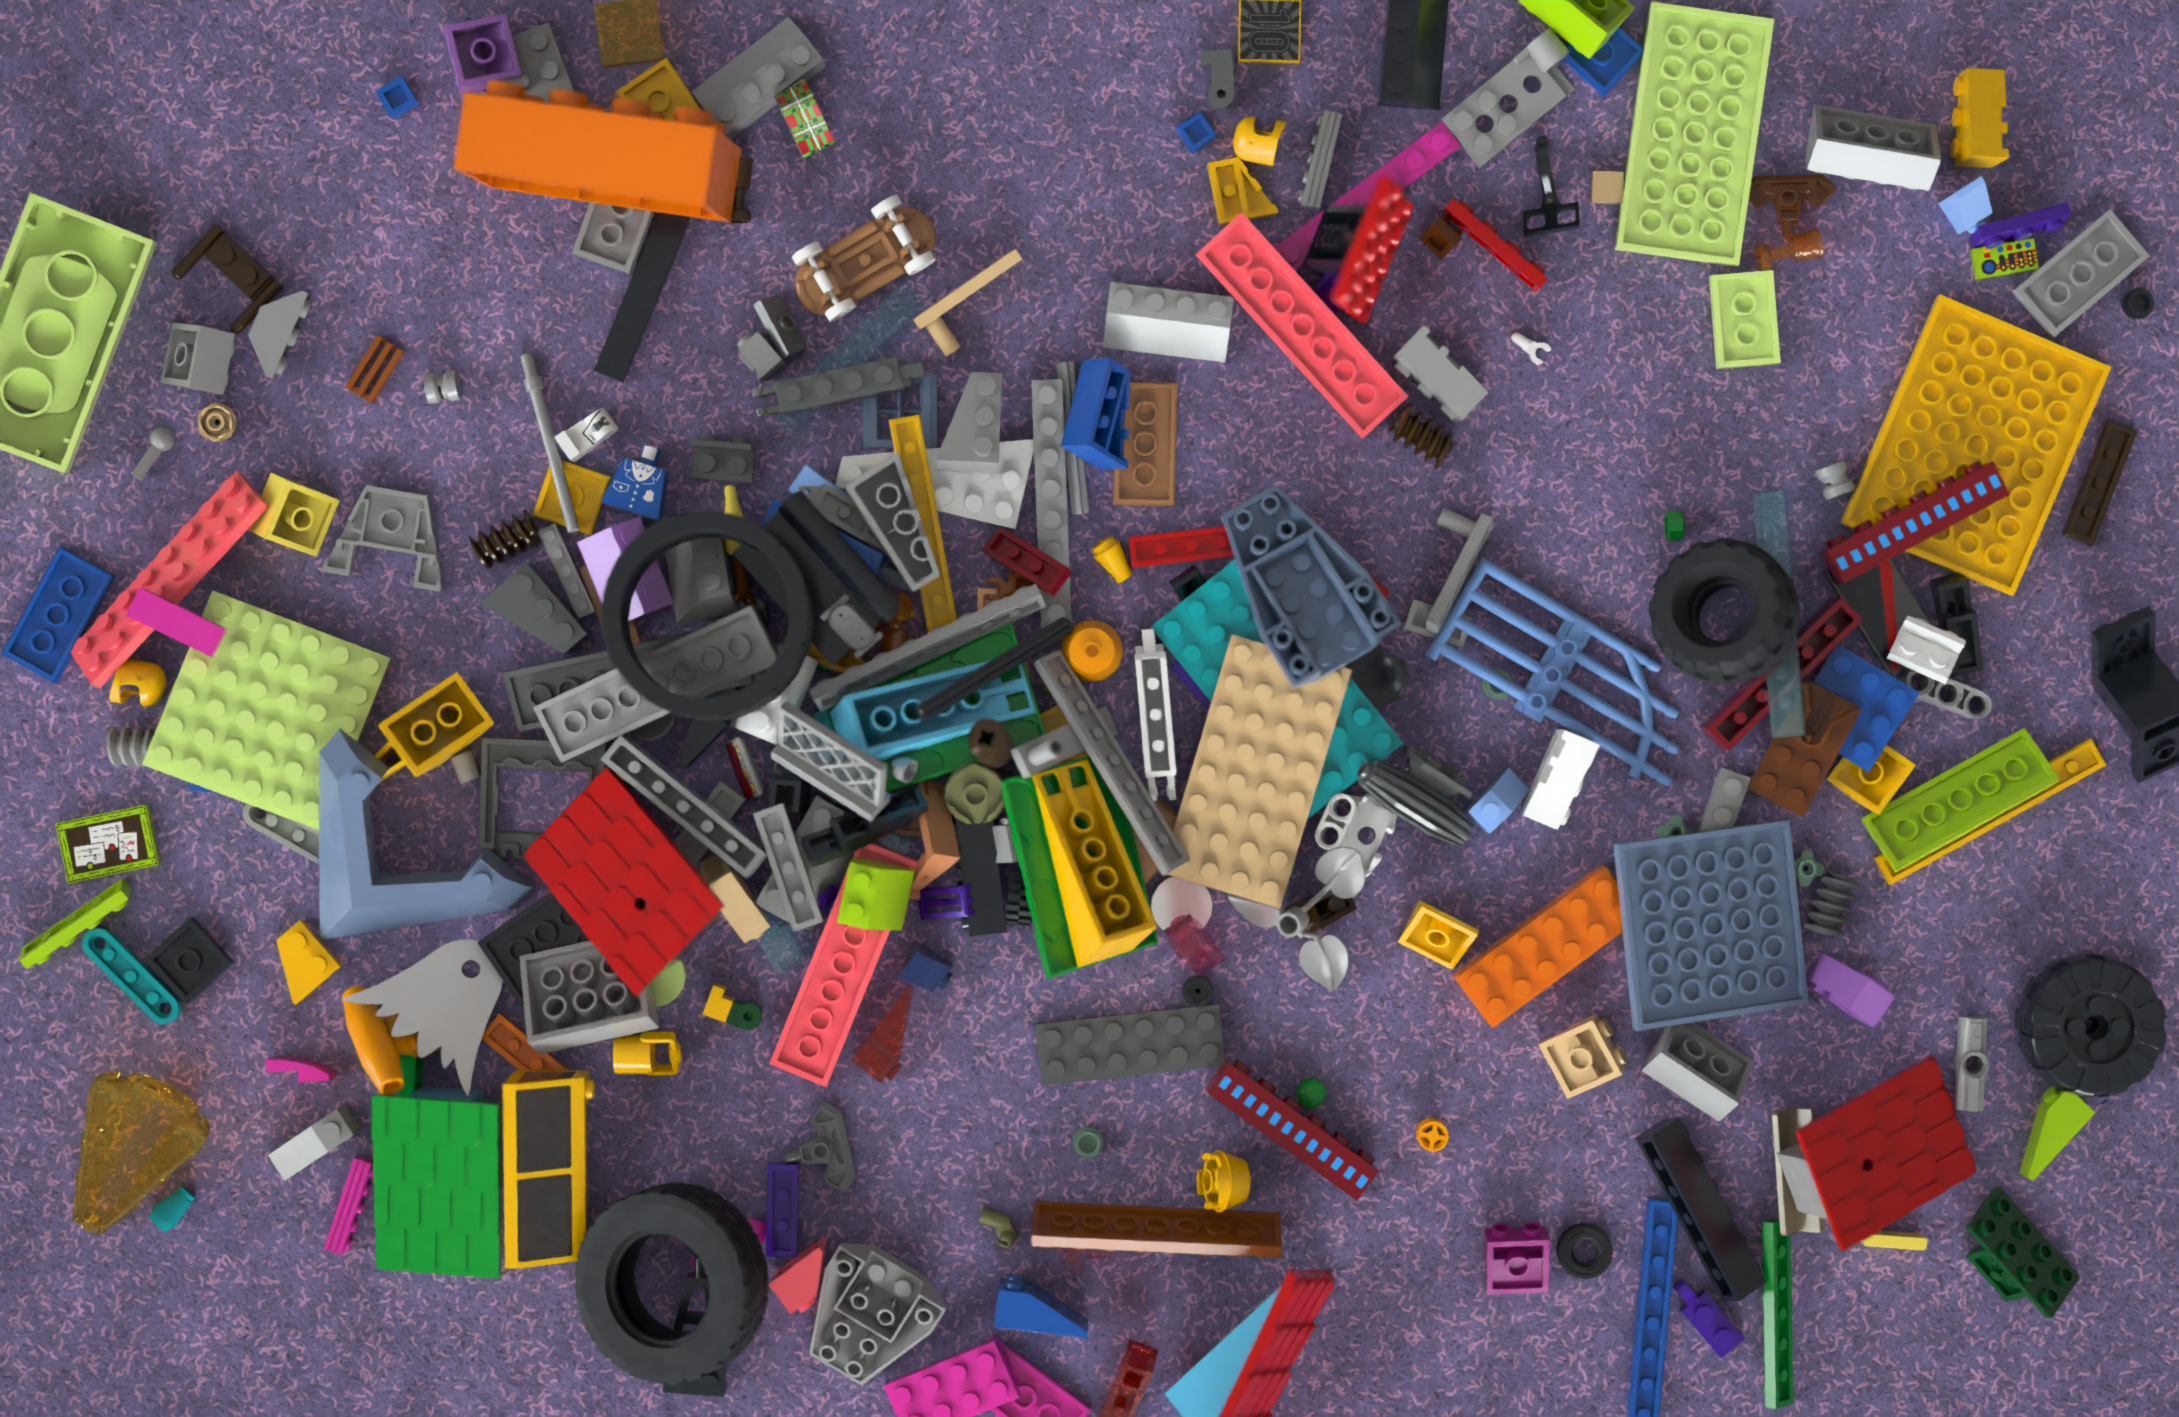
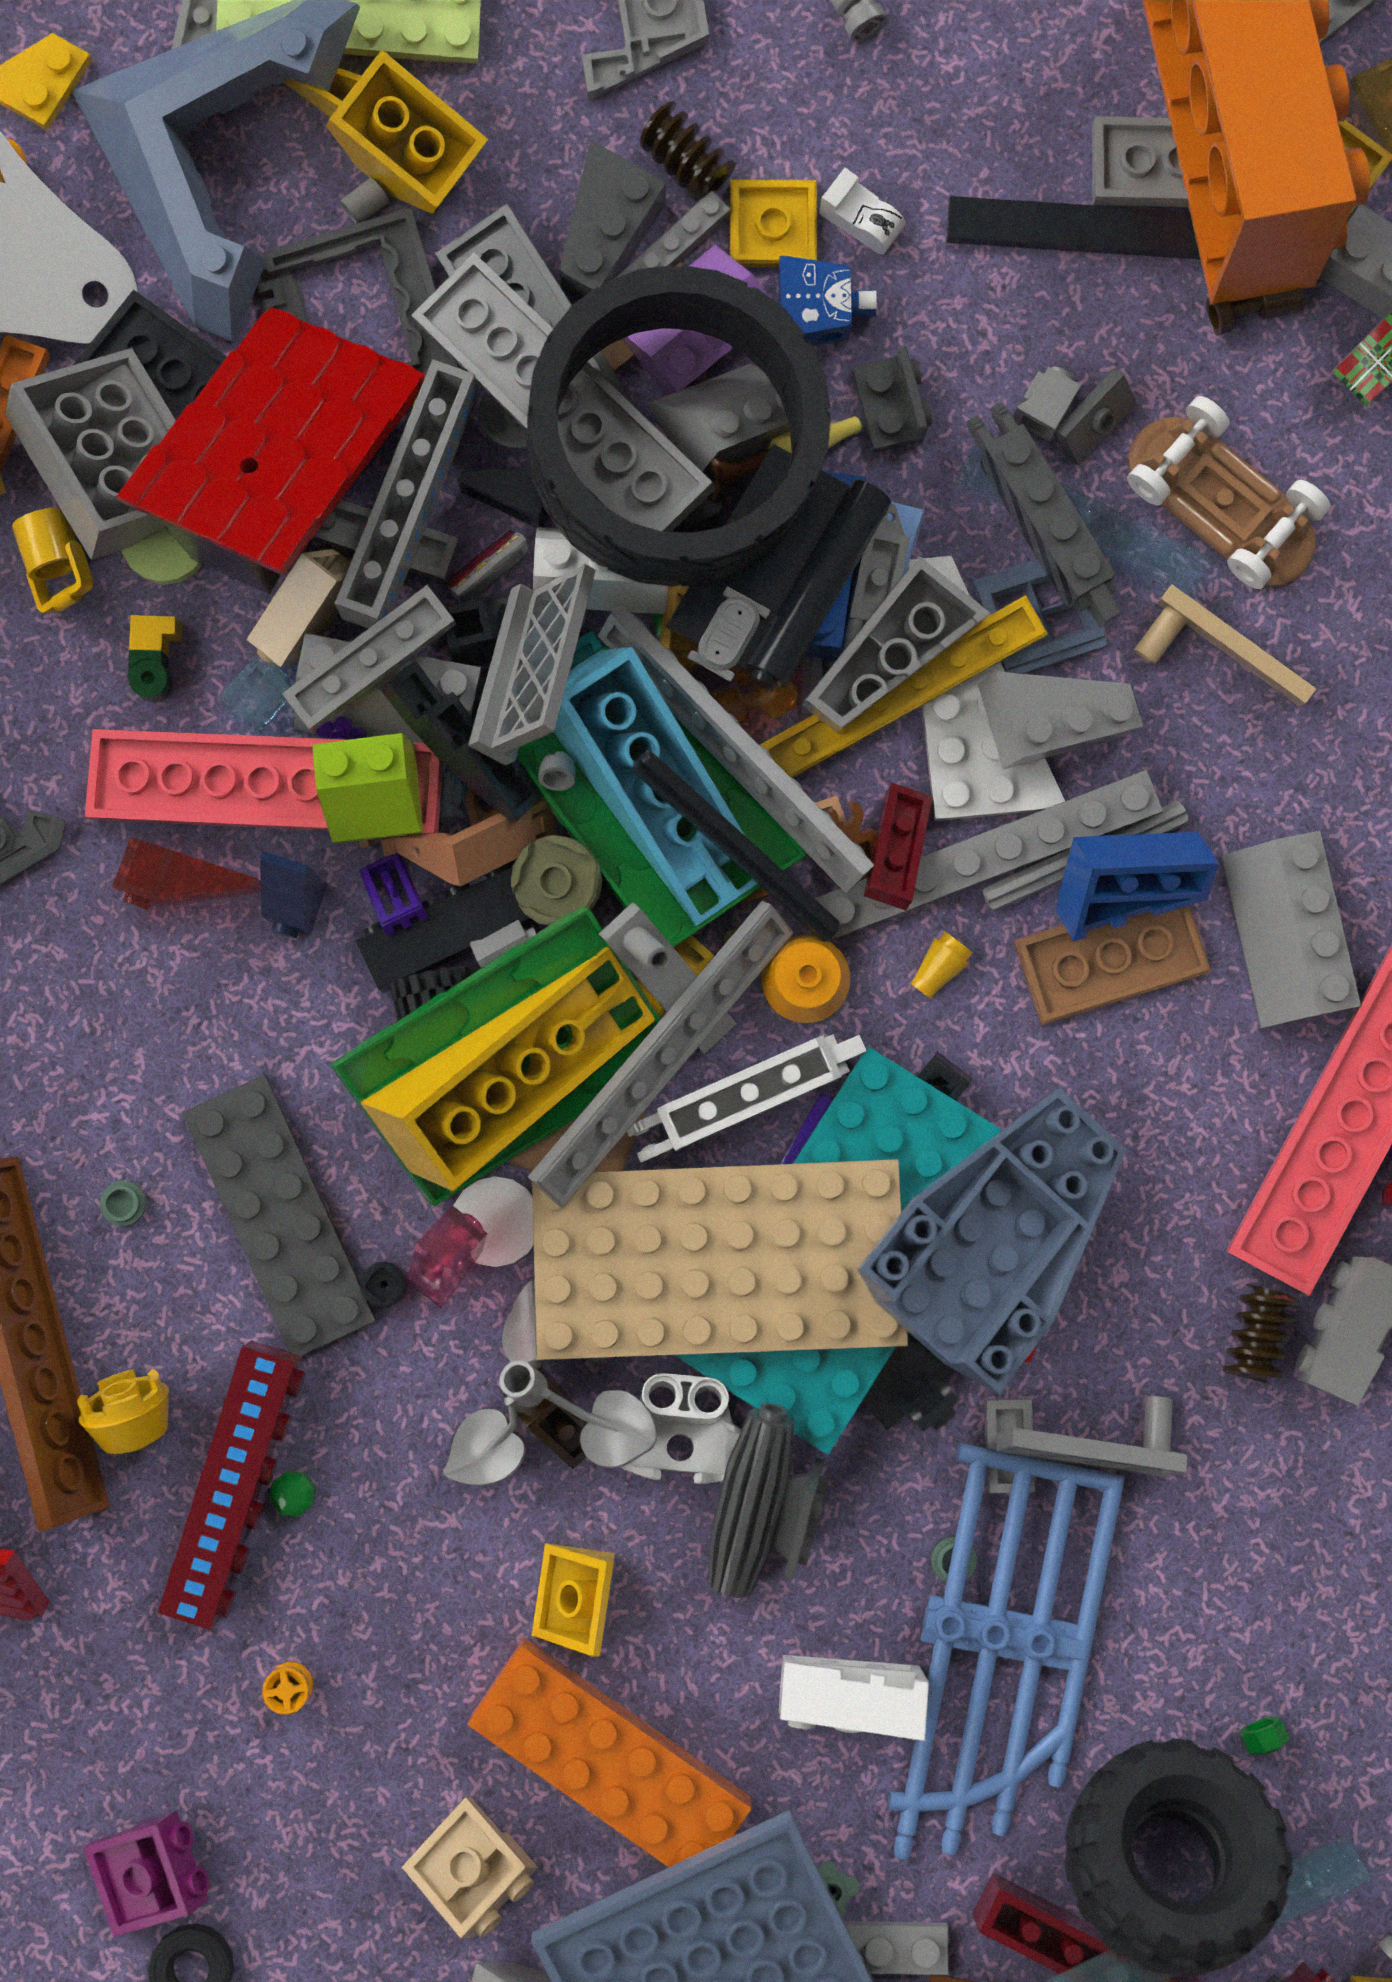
camera: 70 degrees right, 5 degrees down
(534, 386) = (900, 129): light grey bar -> none
(982, 734) = (634, 871): dark brown piece -> none
(1179, 547) = (989, 1050): red plate -> none
(1497, 801) = (790, 1617): light blue slope -> none

